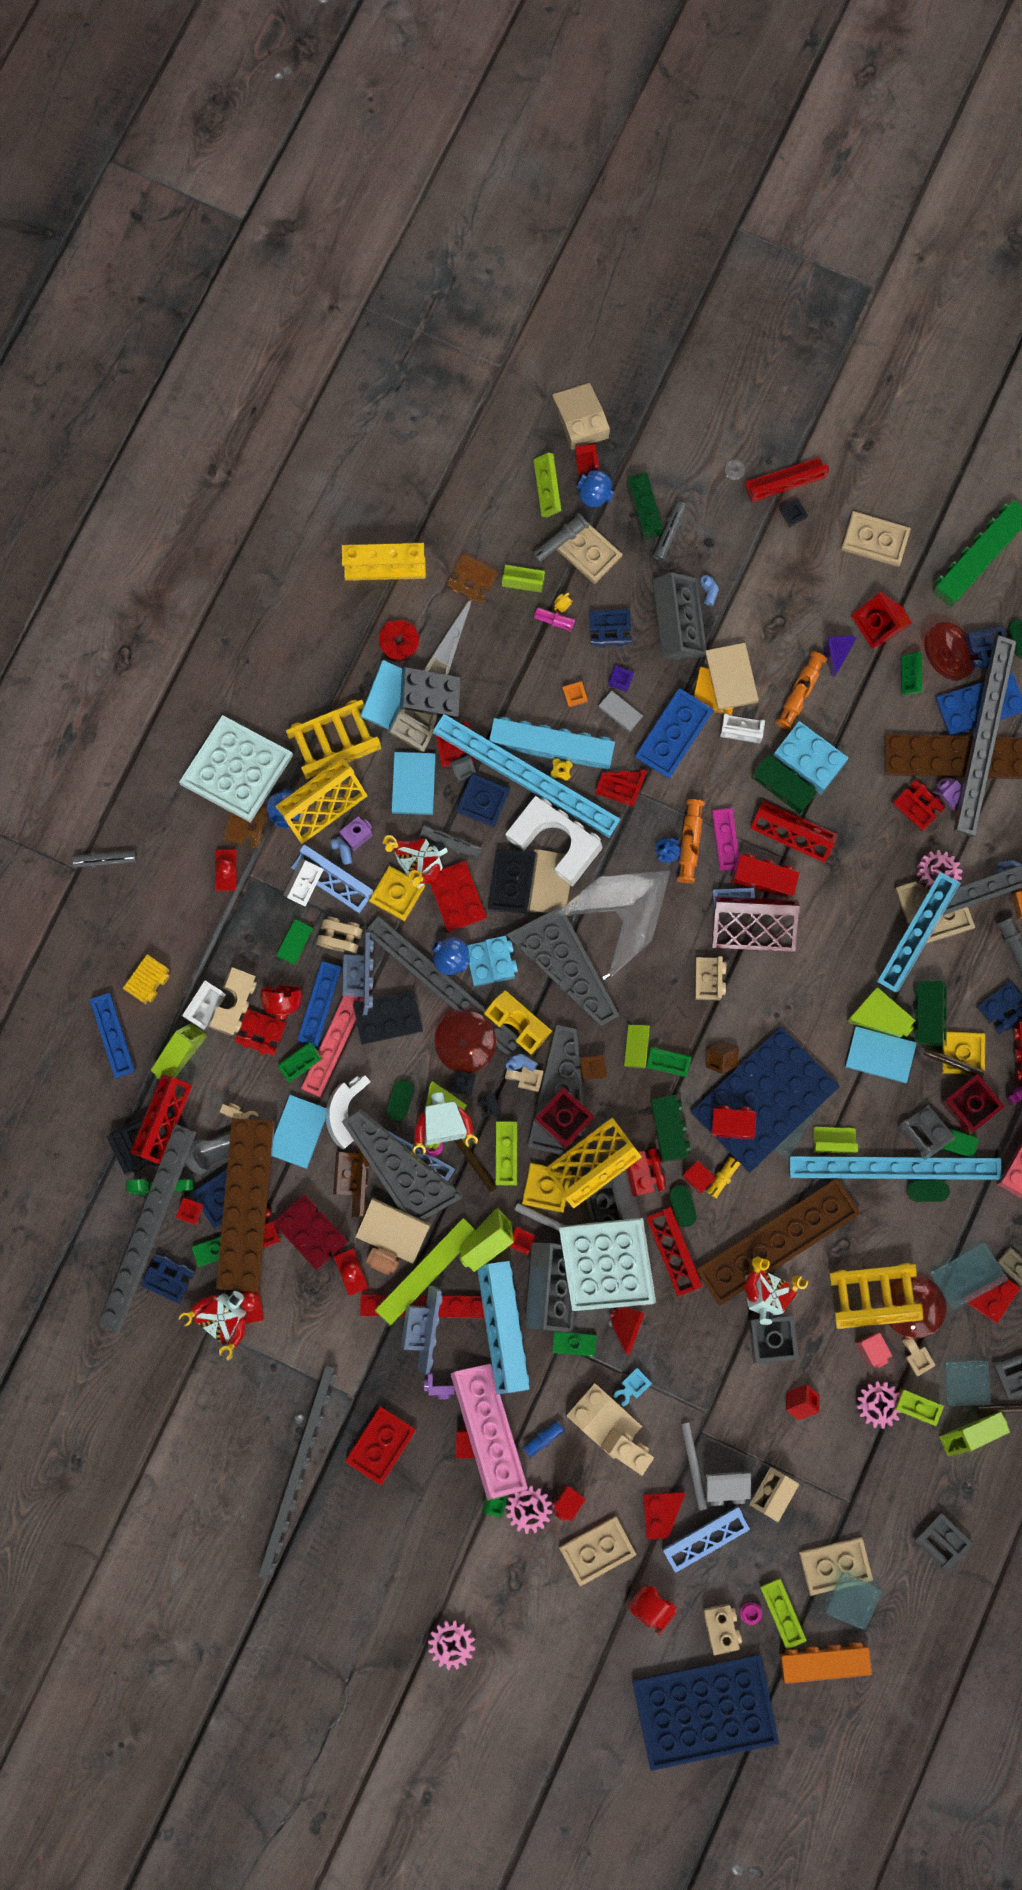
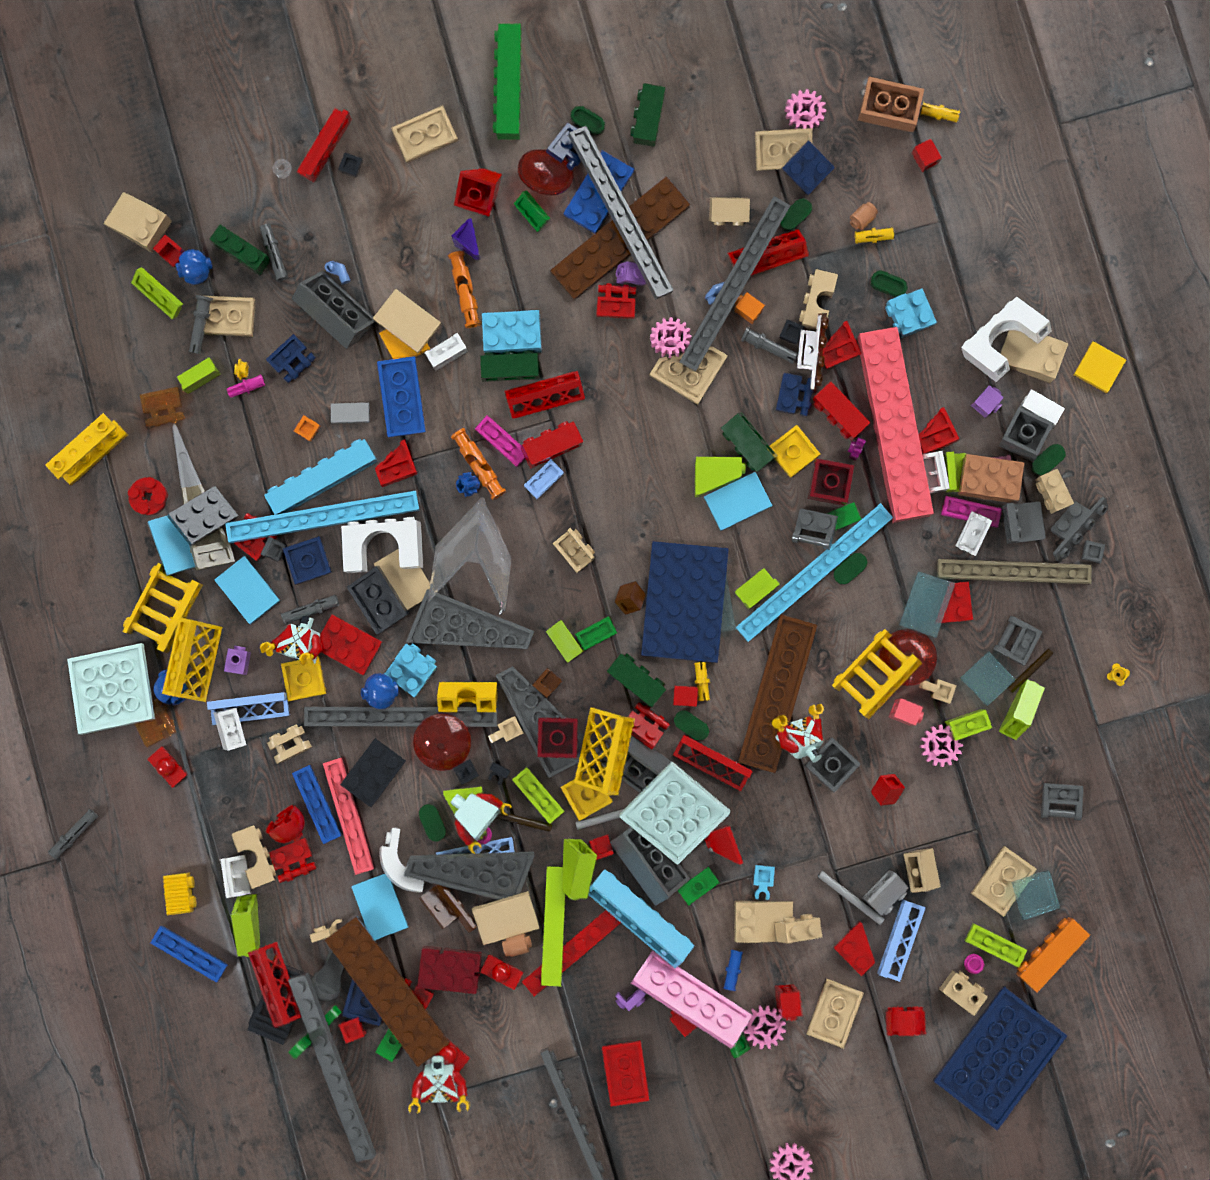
camera: 35 degrees left, 5 degrees up
(164, 1284) = (379, 1094): dark blue plate -> none
(294, 942) = (261, 775): green tile -> none
(300, 1062) = (338, 857): green plate -> none
(344, 849) = (238, 679): medium blue arm -> none
(356, 974) = (324, 762): sand blue bracket -> none
(421, 1328) = (584, 970): sand blue bracket -> none
(519, 1061) = (492, 723): medium blue arm -> none
(556, 773) = (344, 495): yellow plate -> none
(621, 678) = (330, 389): dark purple tile -> none
(733, 1123) = (678, 638): red brick -> none
(761, 907) = (561, 474): fence -> none
(919, 932) = (692, 393): medium azure brick -> none
(953, 1062) = (792, 464): dark brown bar -> none

